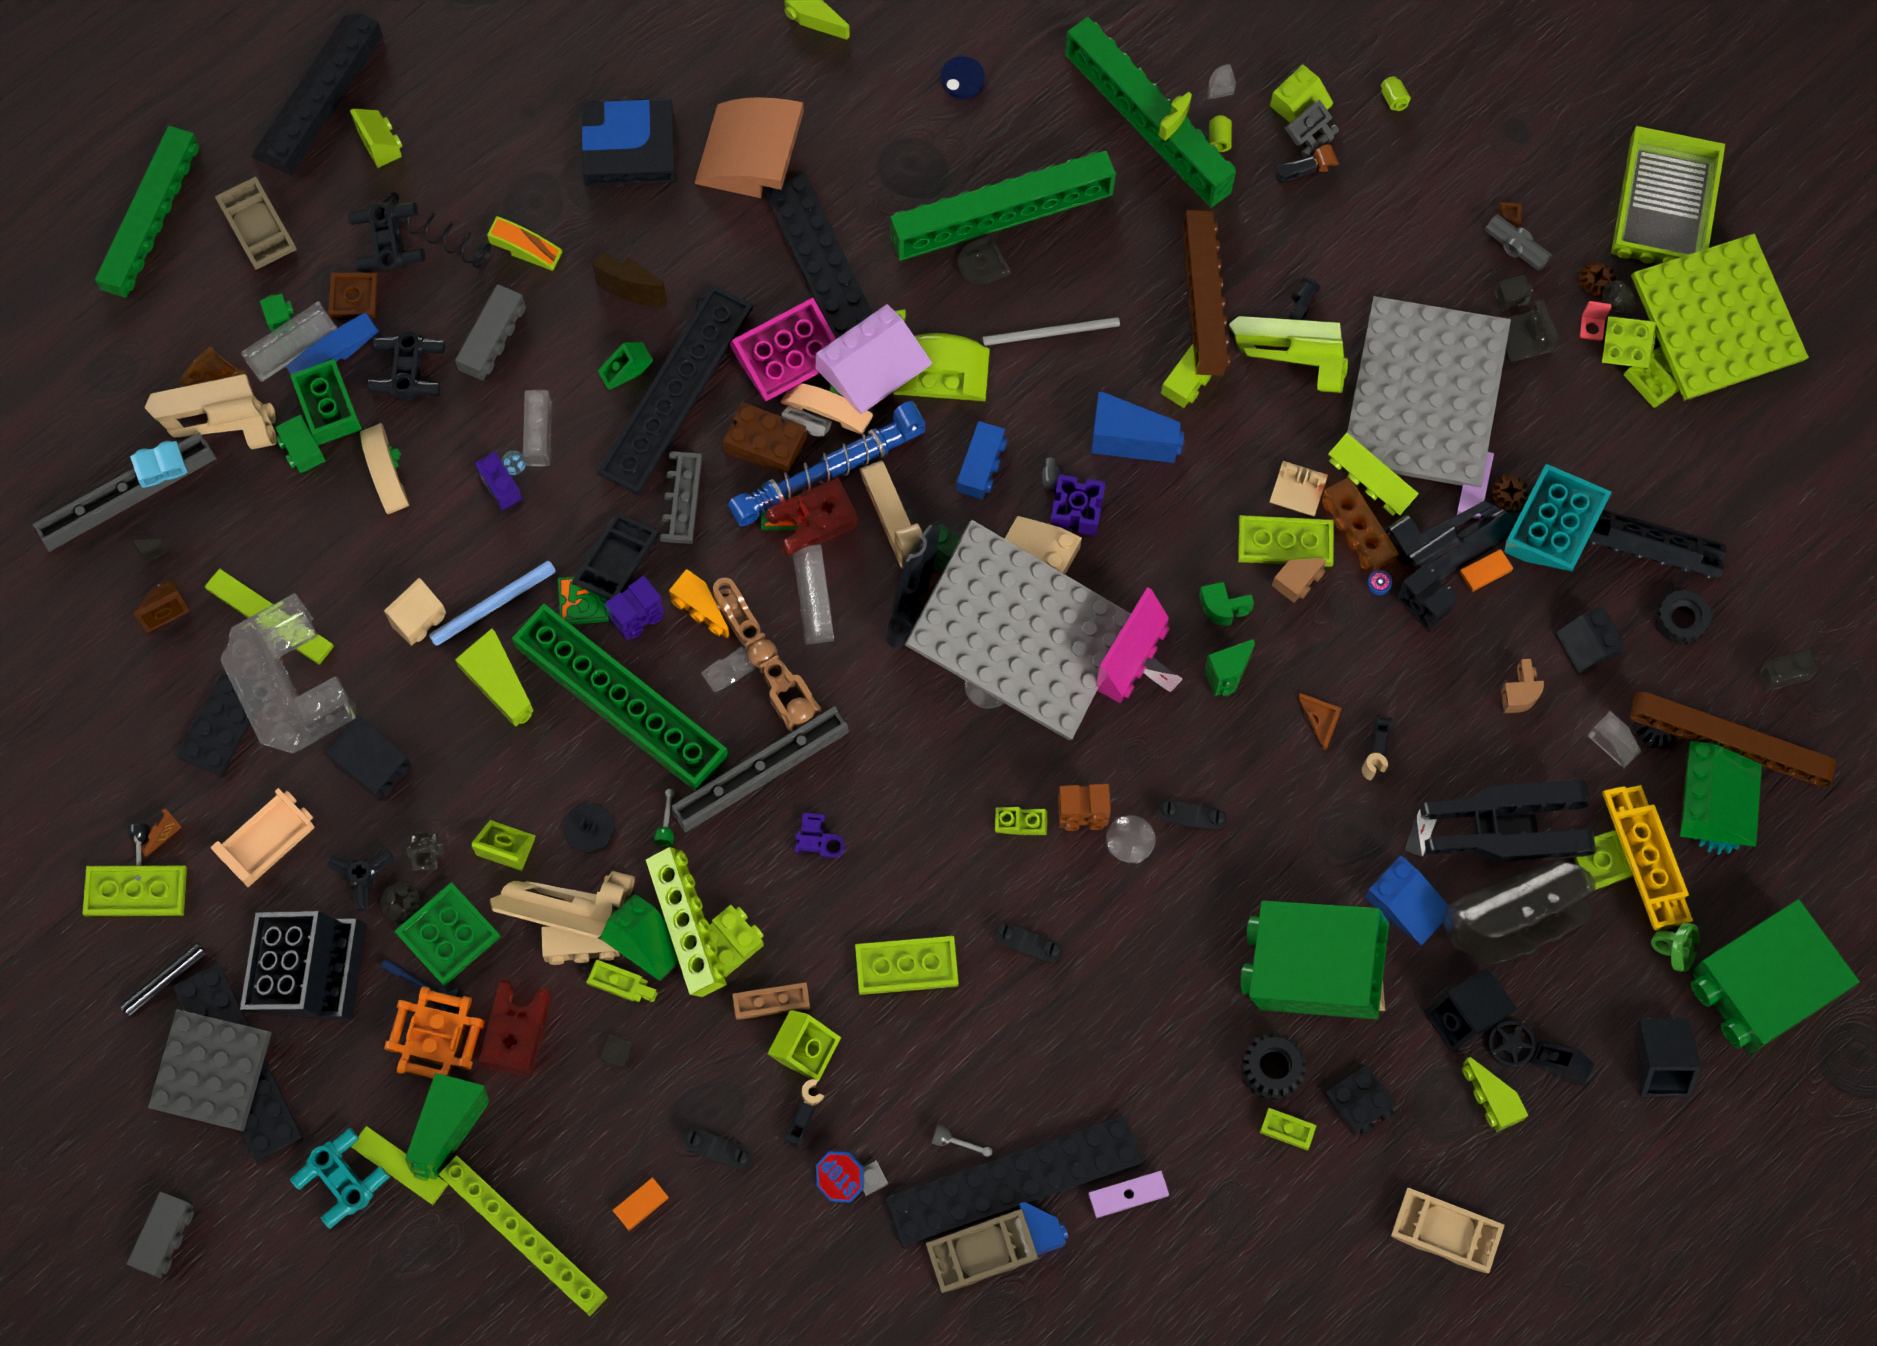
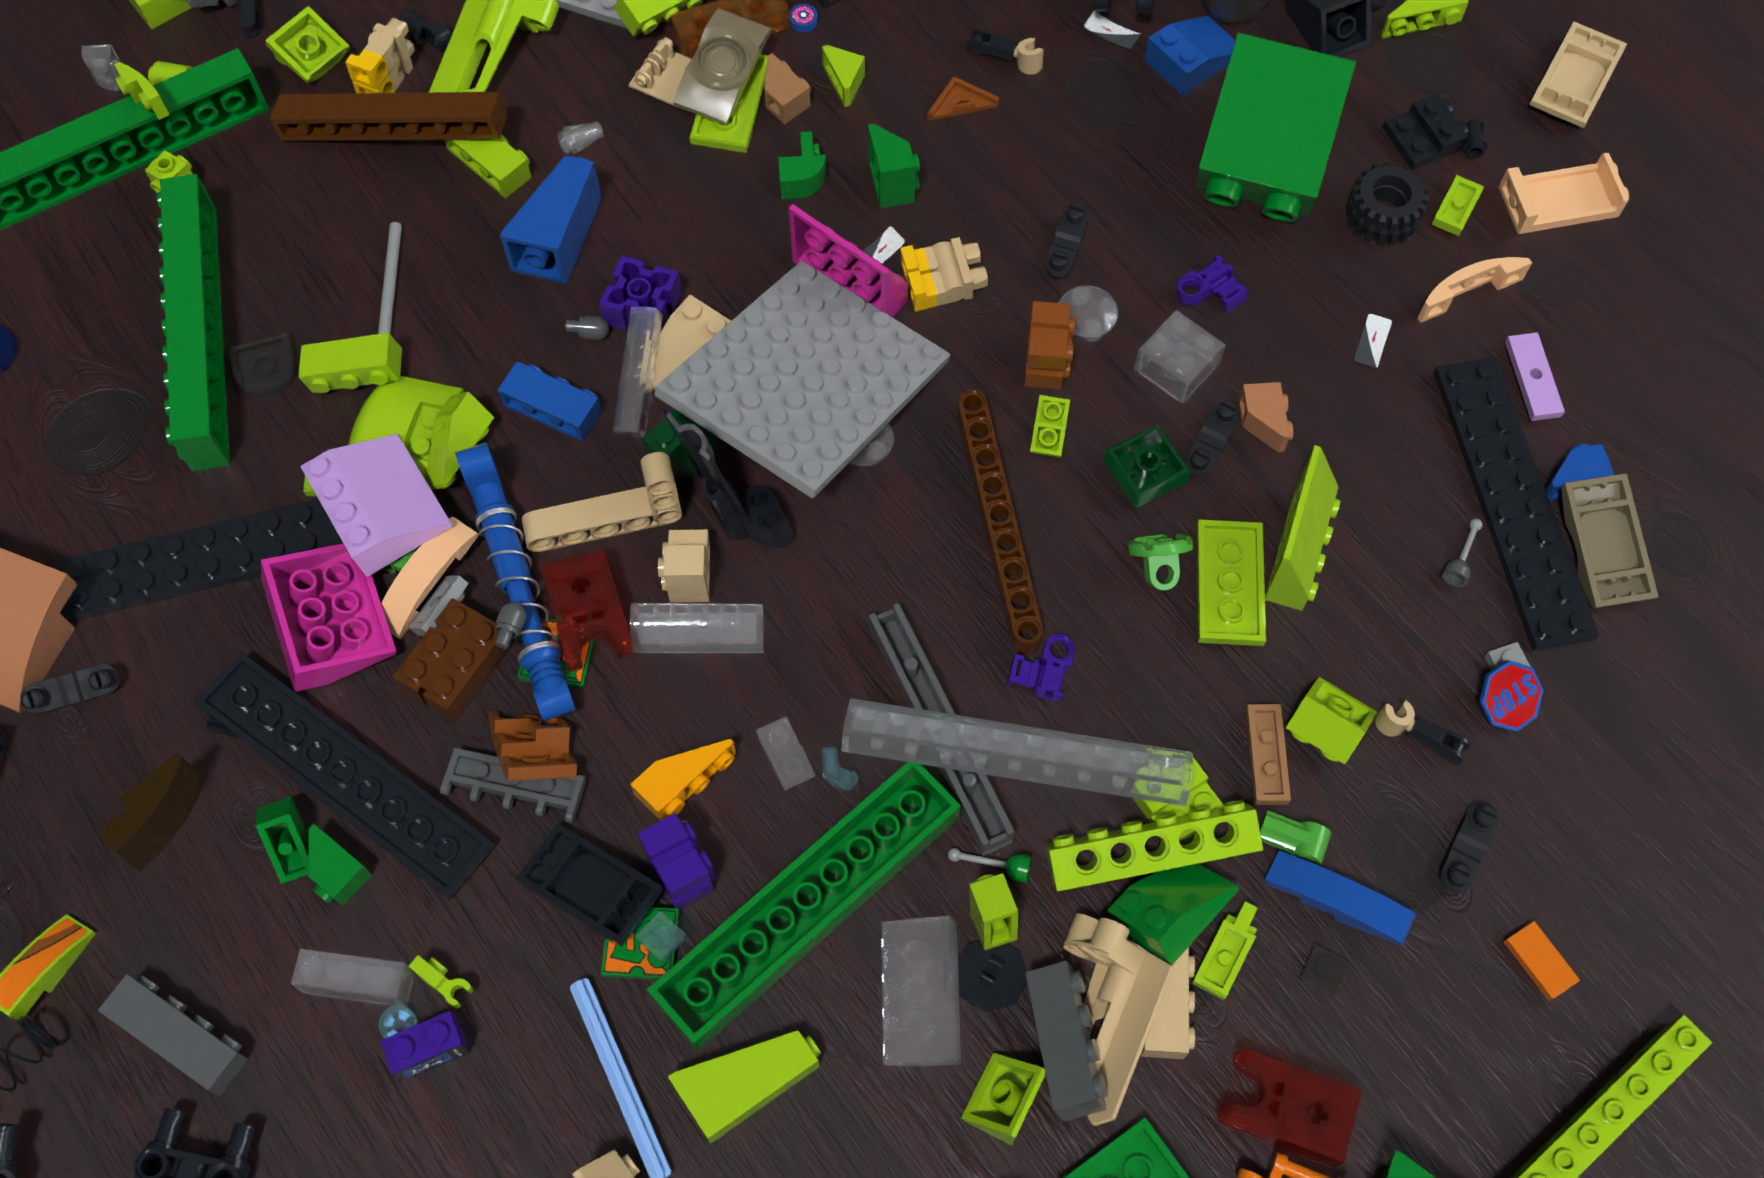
camera: 80 degrees left, 5 degrees down
(541, 874) = (1066, 1041): none -> dark grey brick
(545, 475) = (433, 974): none -> lime plate
(570, 782) = (920, 992): none -> clear slope
(584, 609) = (661, 936): none -> clear light blue plate
(609, 398) = (333, 869): none -> green slope
(624, 817) = (993, 911): none -> lime brick
(667, 1056) = (1341, 897): none -> blue slope
(707, 502) = (532, 747): none -> dark orange slope
(708, 1029) = (1302, 840): none -> bright green piece
(712, 206) = (69, 688): none -> black piece
(718, 705) = (835, 774): none -> clear light blue arm
(737, 816) = (1018, 752): none -> clear brick
(764, 655) = (777, 698): medium nougat piece -> none
(789, 466) = (509, 623): none -> dark grey cylinder
(859, 578) = (686, 566): none -> tan brick
(922, 906) = (1160, 551): none -> bright green tile
(924, 799) = (999, 532): none -> reddish brown beam
(938, 401) = (455, 428): none -> lime slope
(946, 1010) = (1304, 535): none -> lime slope
(986, 318) = (350, 363): none -> lime brick
(995, 878) = (1151, 449): none -> dark green brick
(1010, 513) = (637, 371): none -> clear brick
(1057, 980) = (1264, 413): none -> nougat slope
(1096, 910) = (1179, 356): none -> clear brick
(1127, 157) = (167, 166): none -> lime brick
(1144, 722) = (942, 273): none -> tan hips
(1144, 1066) = (1372, 340): none -> clear sticker
(1178, 935) = (1218, 279): none -> dark purple piece
(1187, 1114) = (1499, 271): none -> light nougat slope
(1222, 433) = (577, 137): none -> clear cone
(1259, 276) = (383, 60): none -> hips
(1267, 219) = (307, 46): none -> lime slope
(1306, 525) = (721, 66): none -> dark tan slope
(1316, 1219) = (1564, 195): none -> light nougat panel
(1324, 622) = (844, 70): none -> lime slope
(1361, 1142) = (1475, 144): none -> black pin

